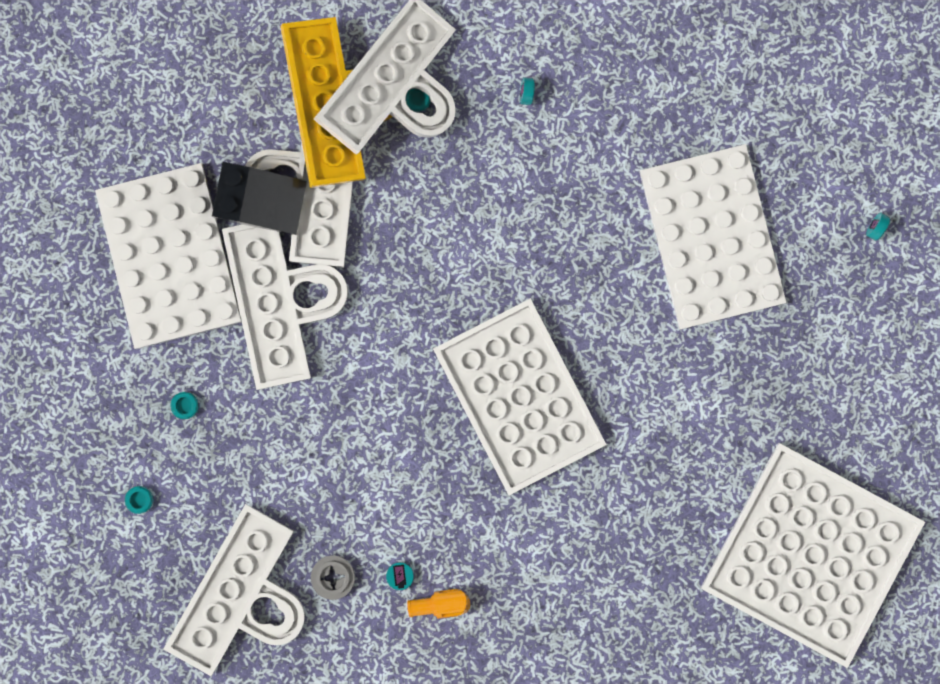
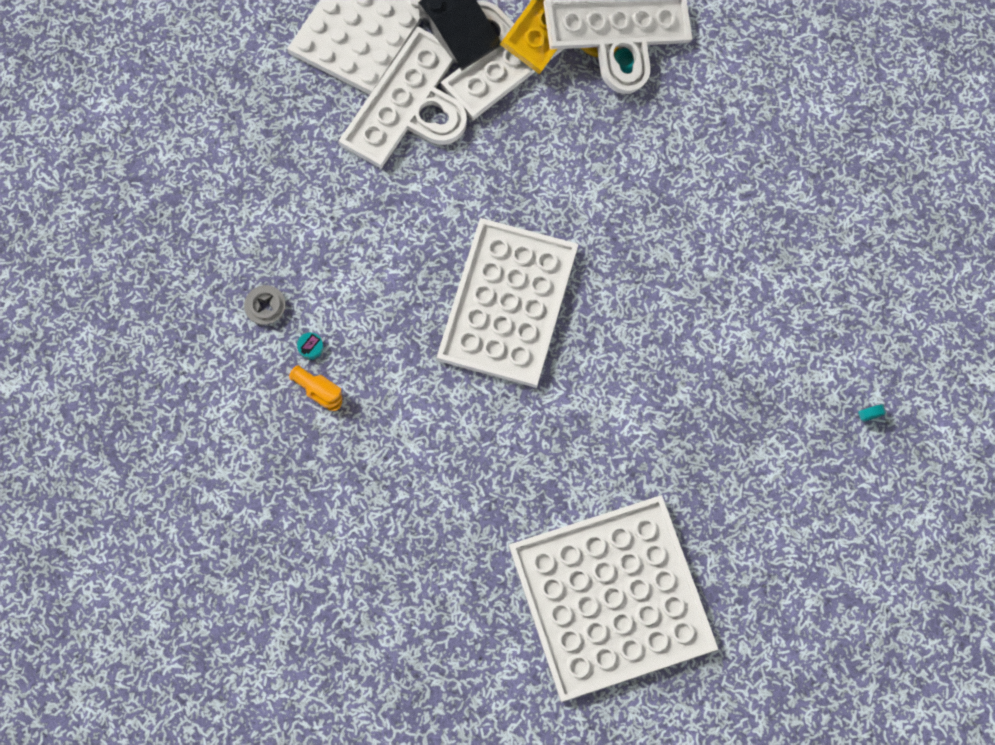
camera: 50 degrees right, 15 degrees down
(138, 499) = (192, 144): teal tile -> none
(184, 405) = (282, 113): teal tile -> none
(230, 589) = (190, 251): white plate -> none
(527, 91) = (703, 115): teal tile -> none
(712, 236) = (744, 319): white plate -> none

